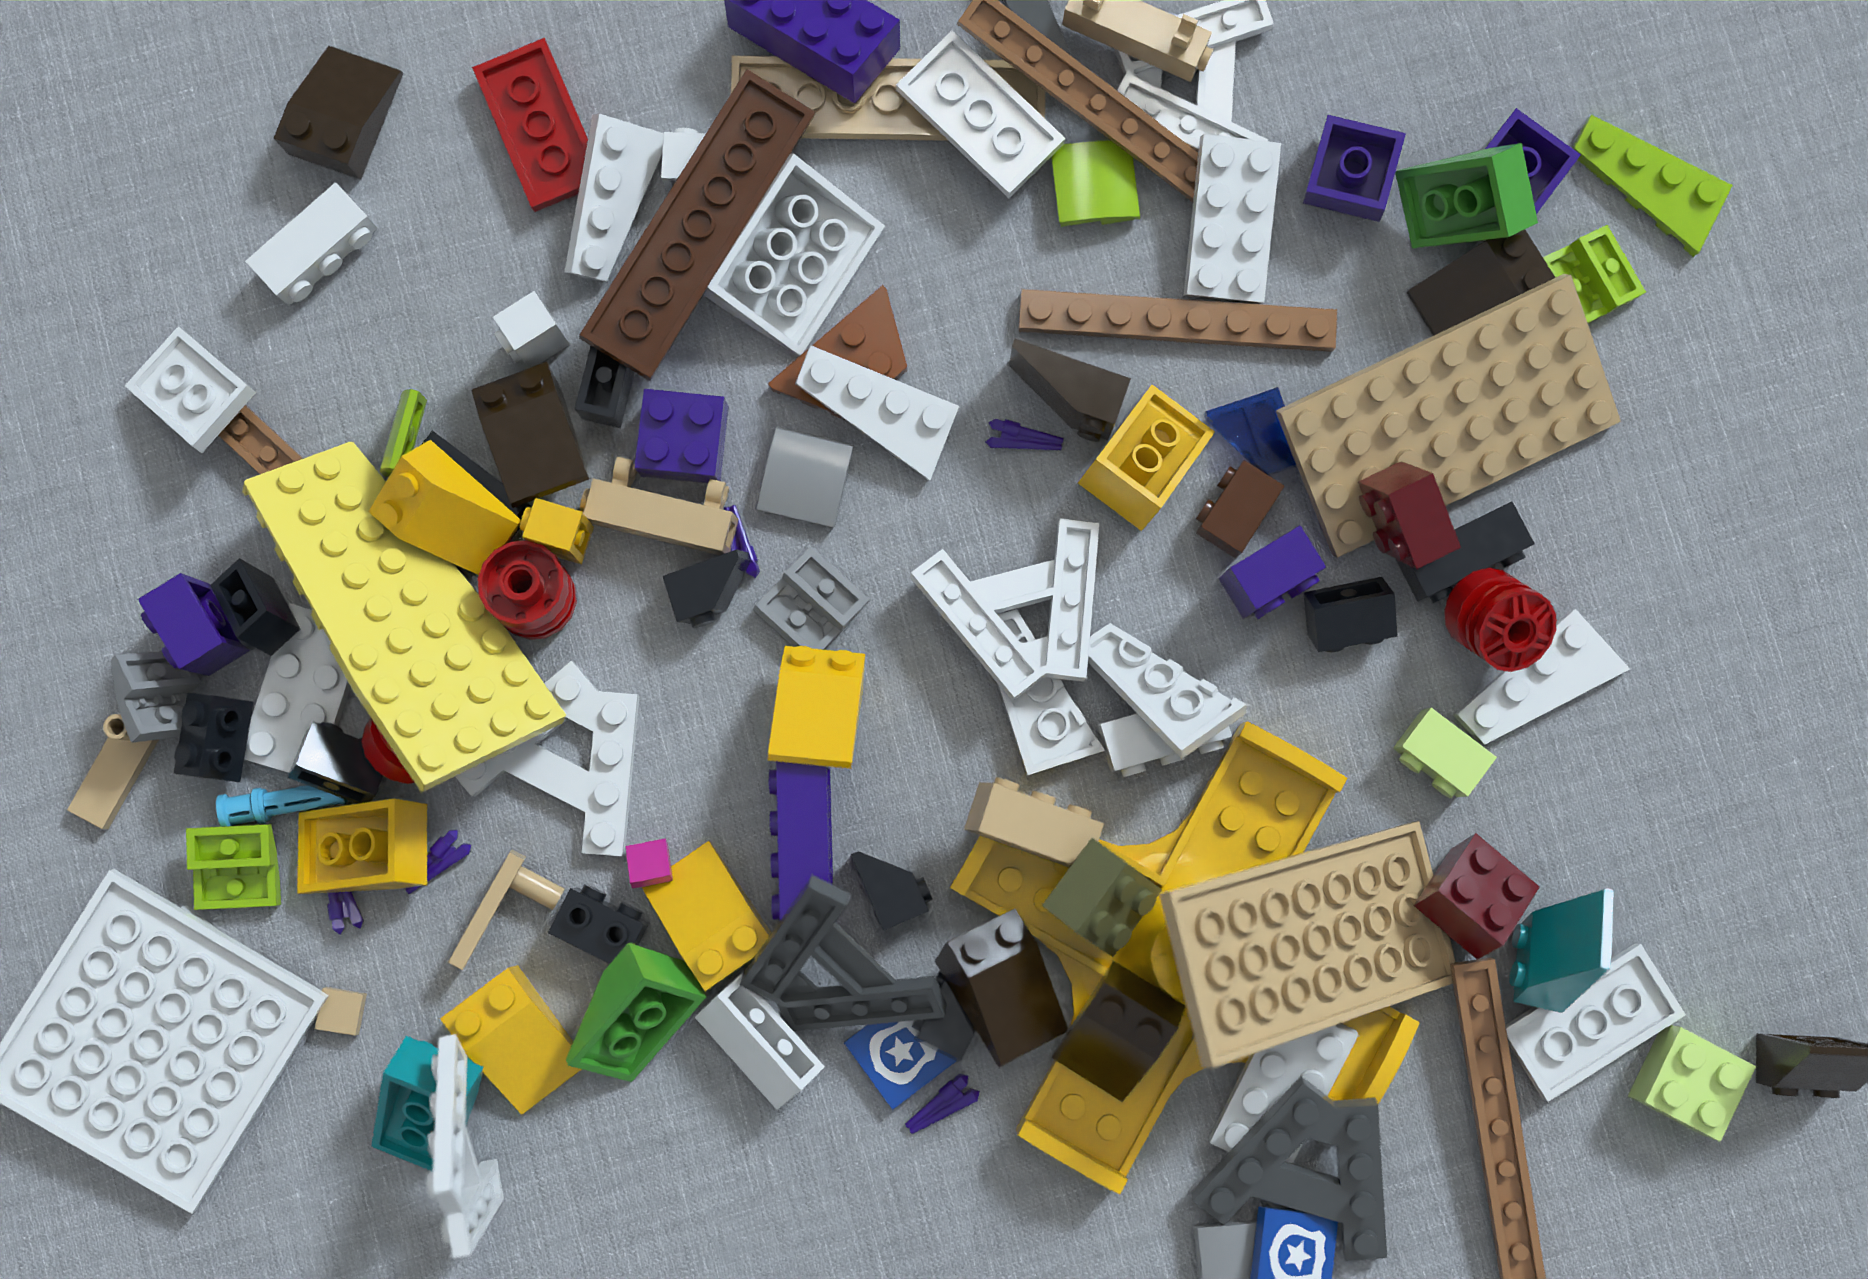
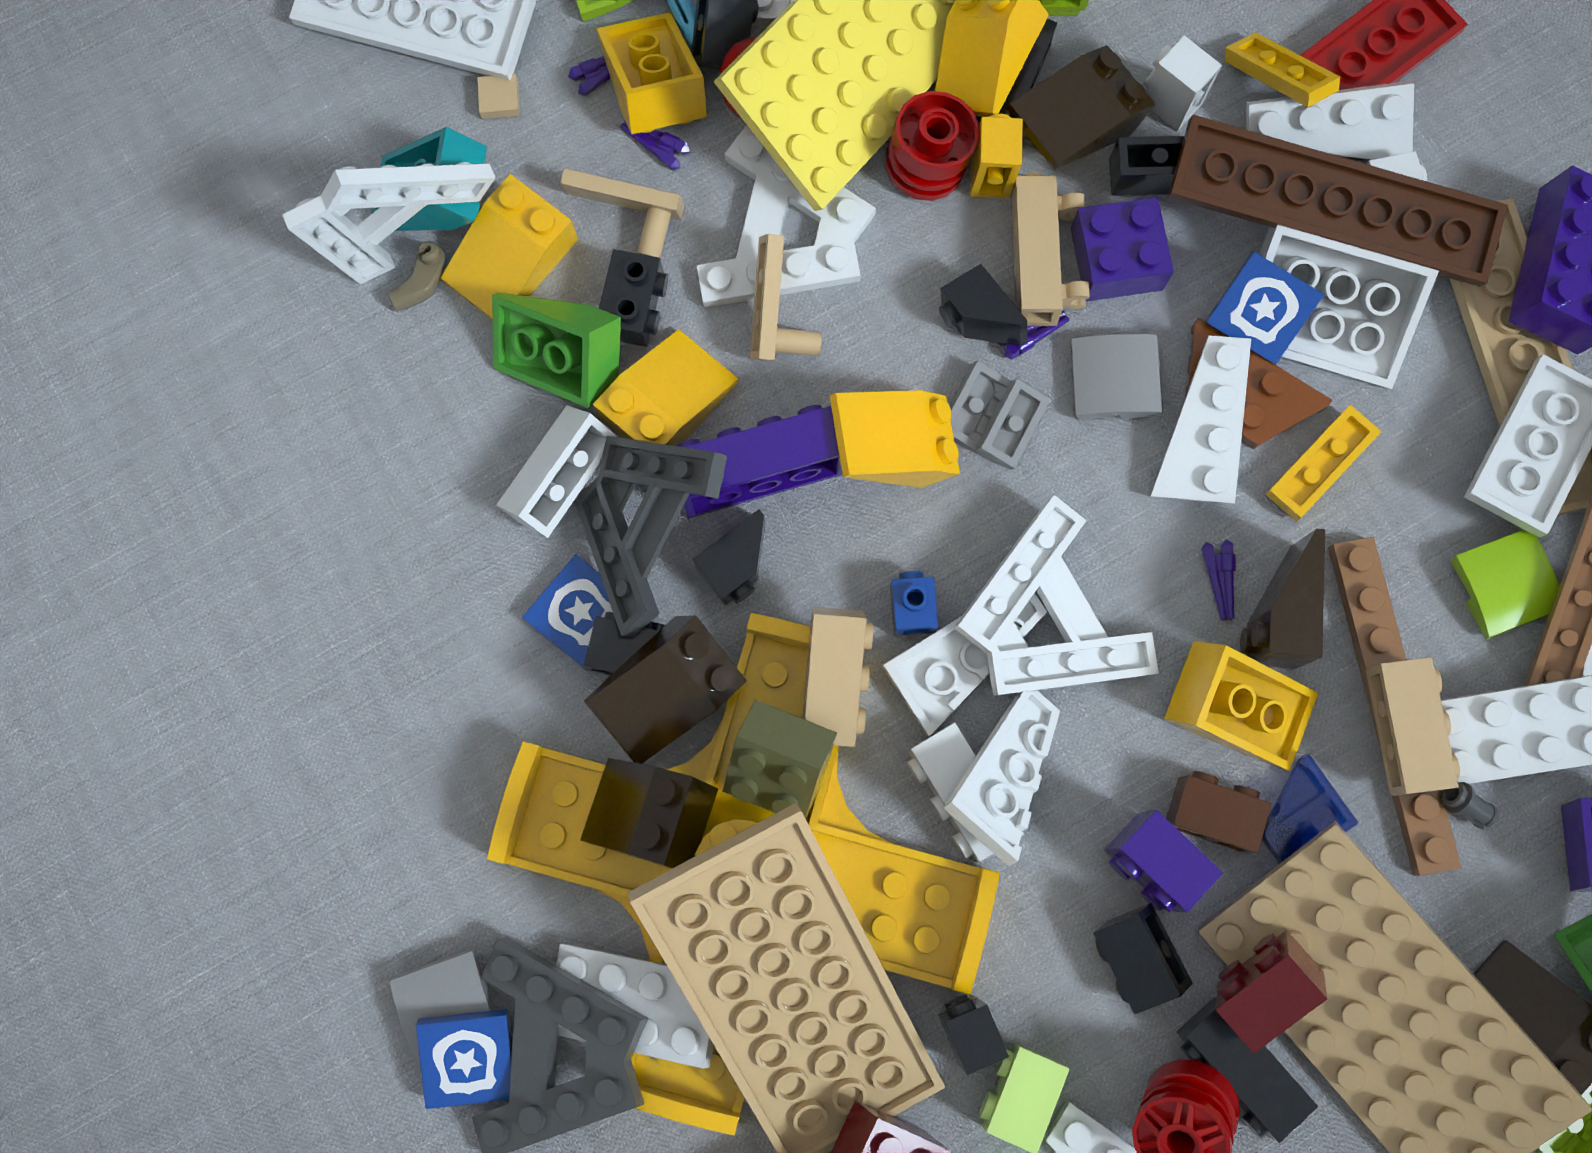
camera: 80 degrees right, 5 degrees down
(519, 1132) = (423, 279): none -> dark tan arm
(544, 230) = (1282, 69): none -> yellow plate
(649, 863) = (702, 328): dark pink tile -> none
(673, 802) = (765, 336): none -> tan piece
(779, 321) = (1265, 307): none -> blue tile
(940, 312) = (1323, 463): none -> yellow plate
(946, 1102) = (541, 670): dark purple piece -> none
(977, 731) = (913, 604): none -> blue brick
(1208, 314) = (1412, 726): none -> tan brick
(1280, 290) = (1469, 805): none -> dark grey pin
(1381, 785) = (972, 1033): none -> black brick

